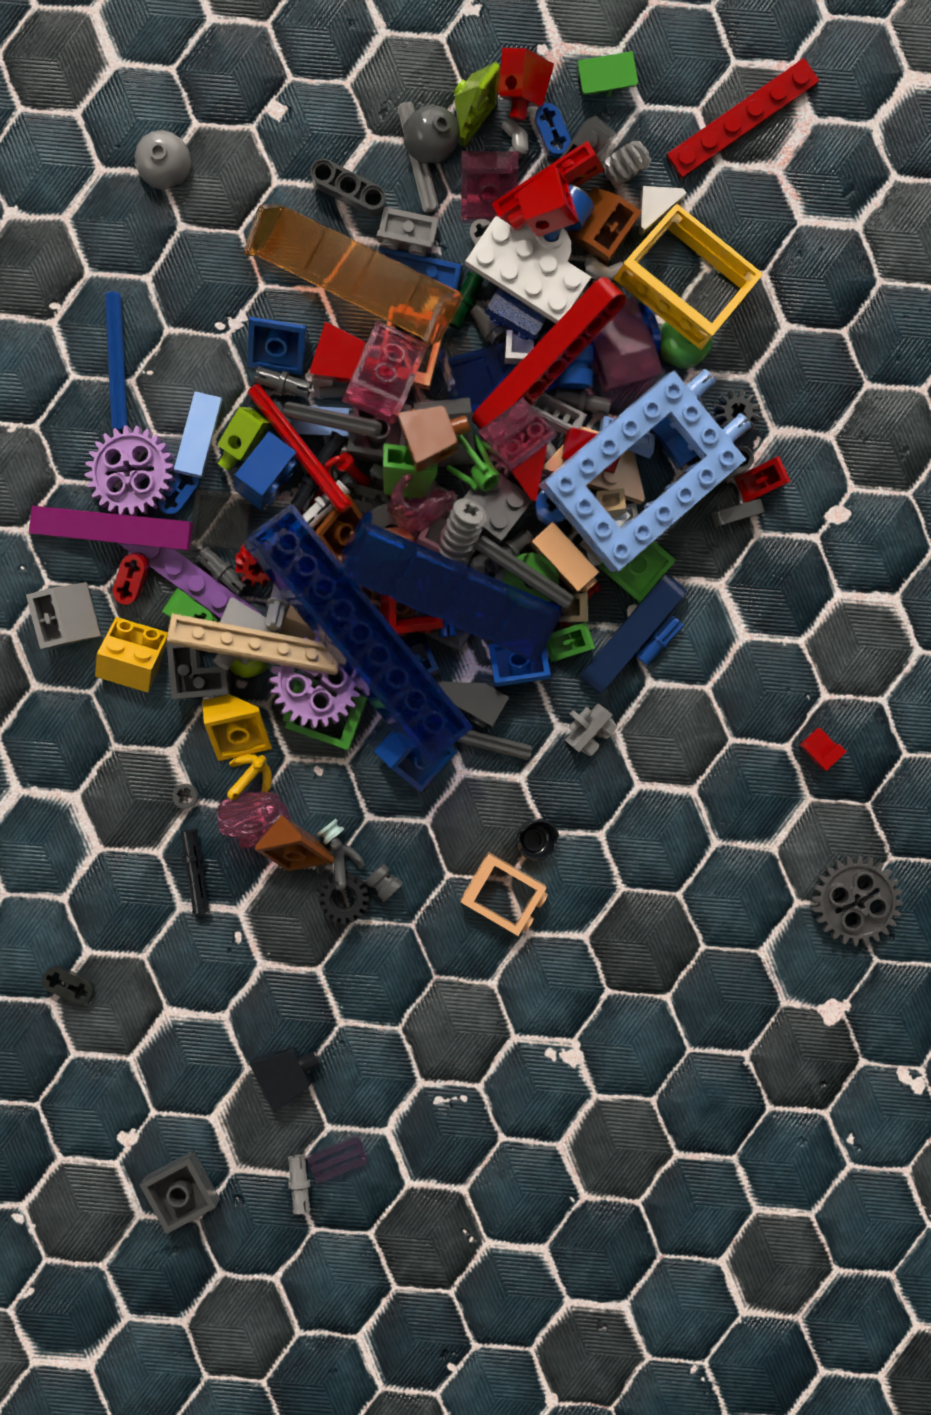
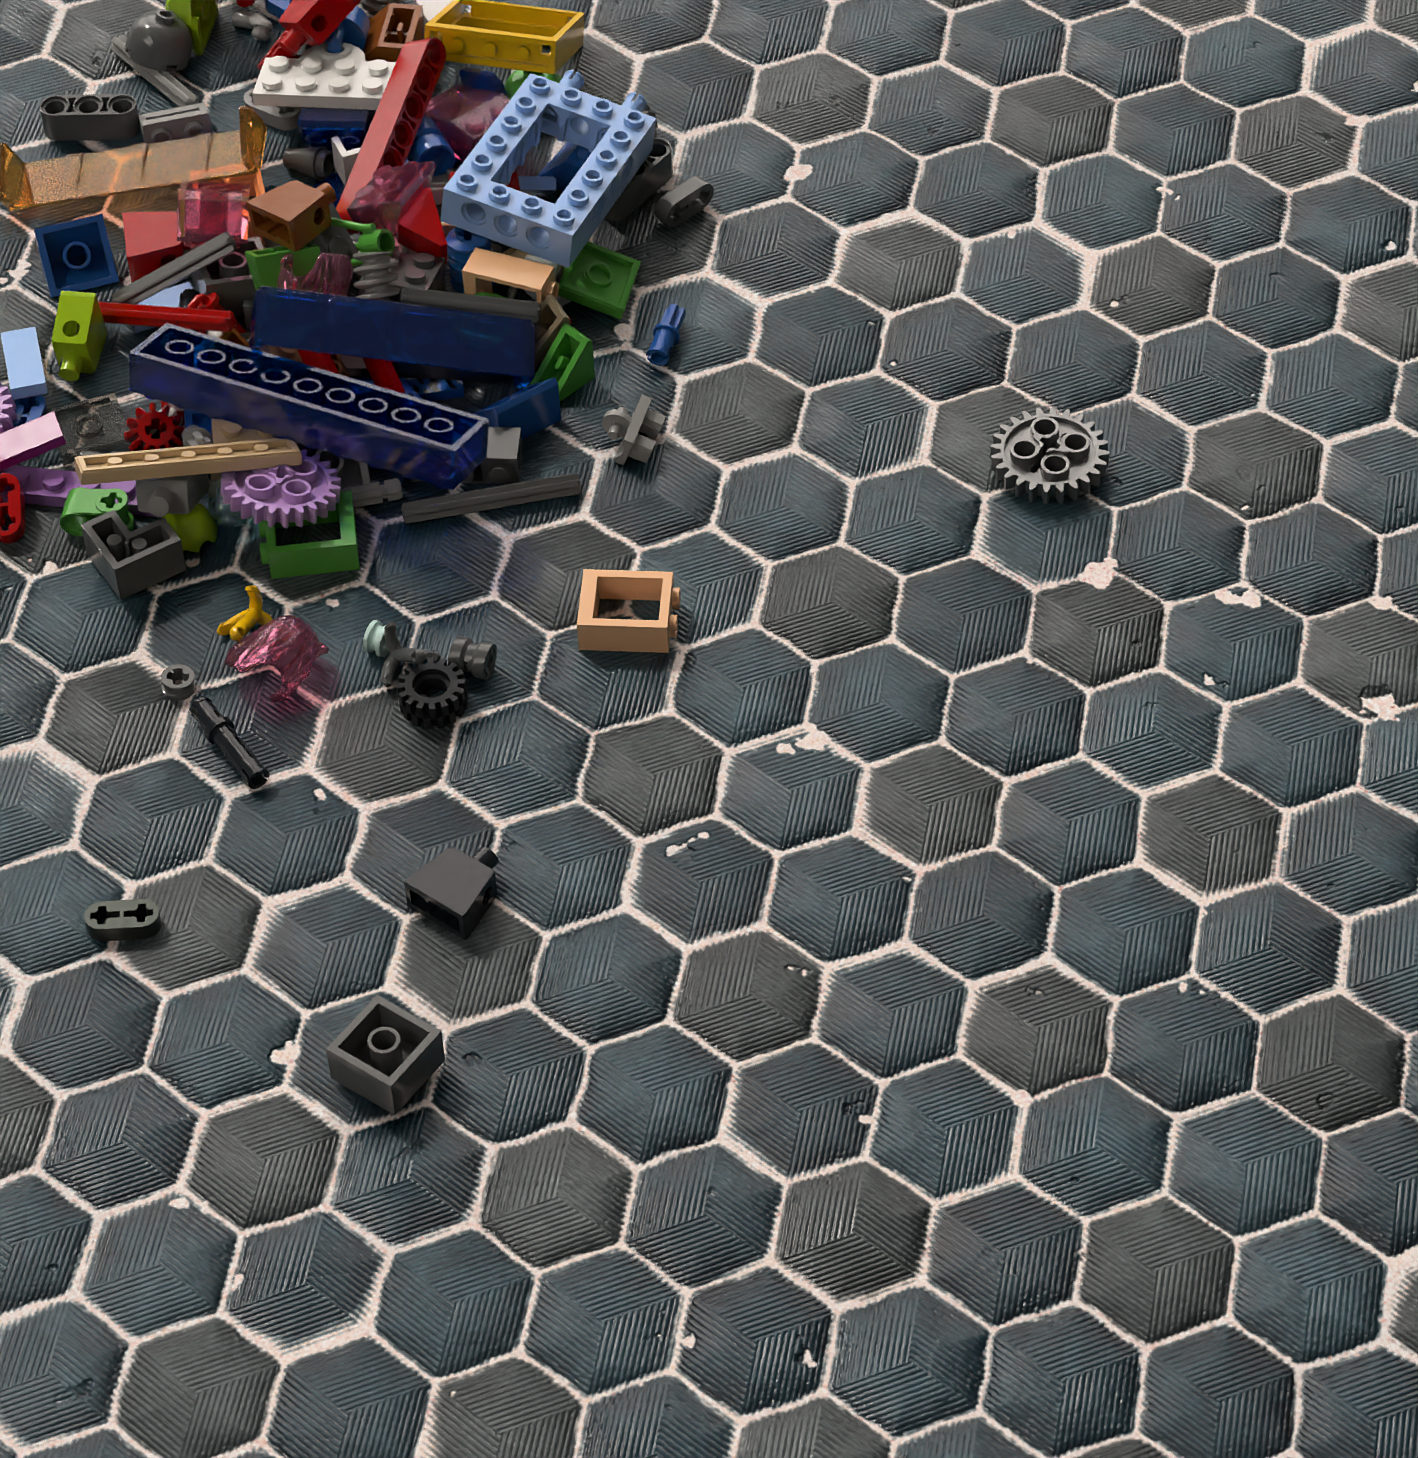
camera: 20 degrees left, 40 degrees down
(131, 654) = (41, 575): yellow slope -> none
(234, 727) = (206, 587): yellow slope -> none
(265, 471) = (114, 333): blue brick -> none
(283, 382) = (102, 286): dark grey pin -> none
(292, 846) = (341, 650): dark orange slope -> none
(299, 1184) = (541, 996): light grey pin -> none
(320, 1177) = (572, 950): clear purple tile -> none
(402, 761) = (441, 529): blue slope -> none
(469, 291) = (272, 156): dark green pin -> none
(486, 179) = (234, 58): clear pink slope -> none
(536, 839) = (634, 542): black hair -> none
(633, 633) = (631, 337): dark blue beam -> none
(762, 479) = (697, 156): red slope -> none
(822, 749) = (916, 355): red panel -> none

